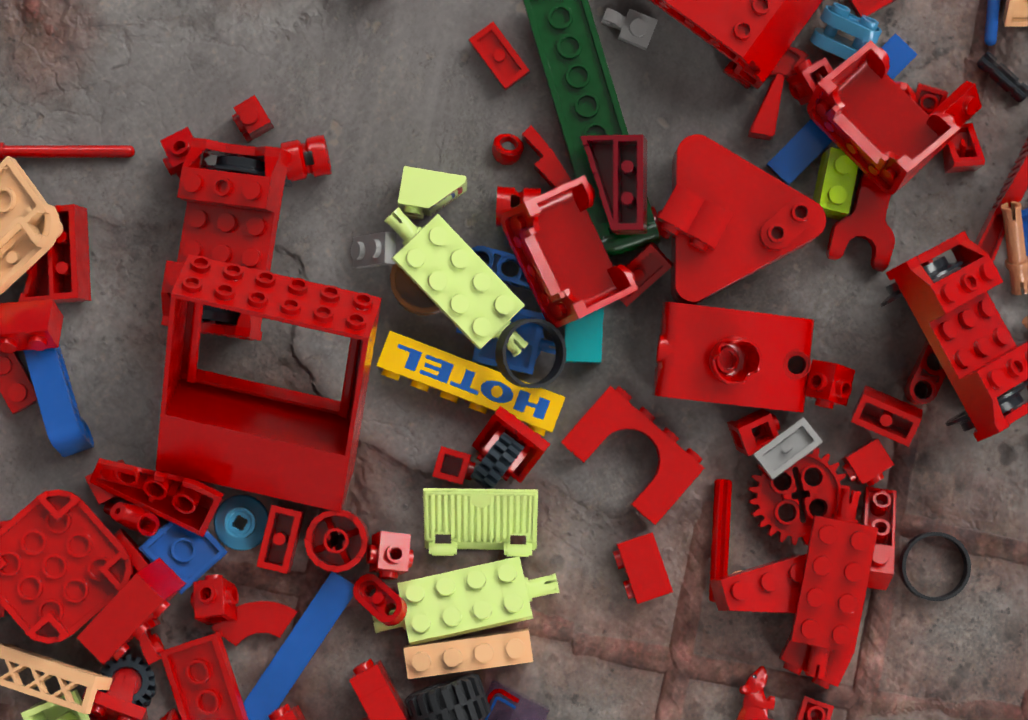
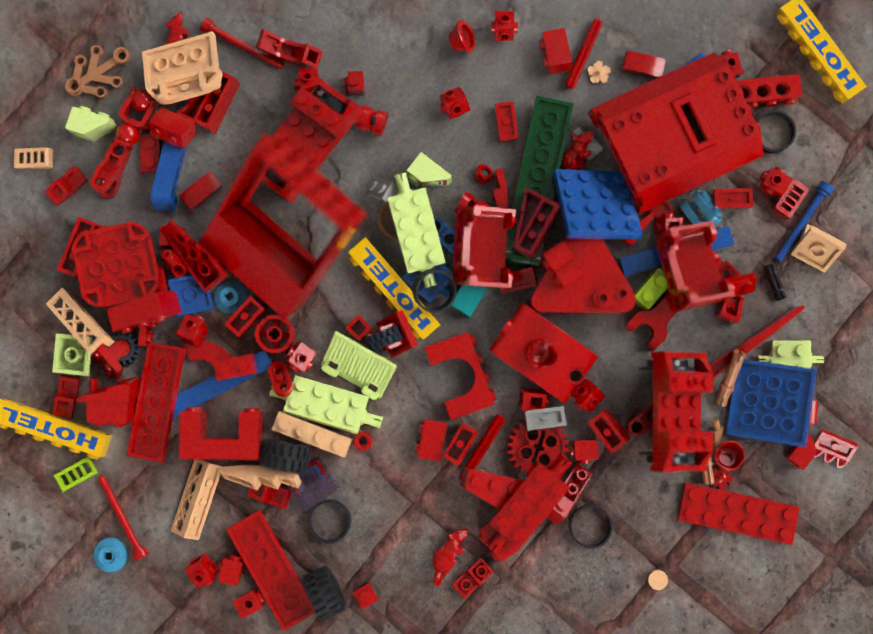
camera: 35 degrees right, 0 degrees up
(114, 394) = (200, 191): none -> red slope
(133, 123) = (288, 51): none -> red arch
(306, 619) = (235, 367): none -> red brick
(410, 70) = (454, 103): none -> red brick
(554, 628) = (367, 436): none -> red plate
(624, 57) = (574, 156): none -> red animal
(686, 551) = (460, 444): none -> red brick
(694, 105) = (596, 205): none -> blue plate

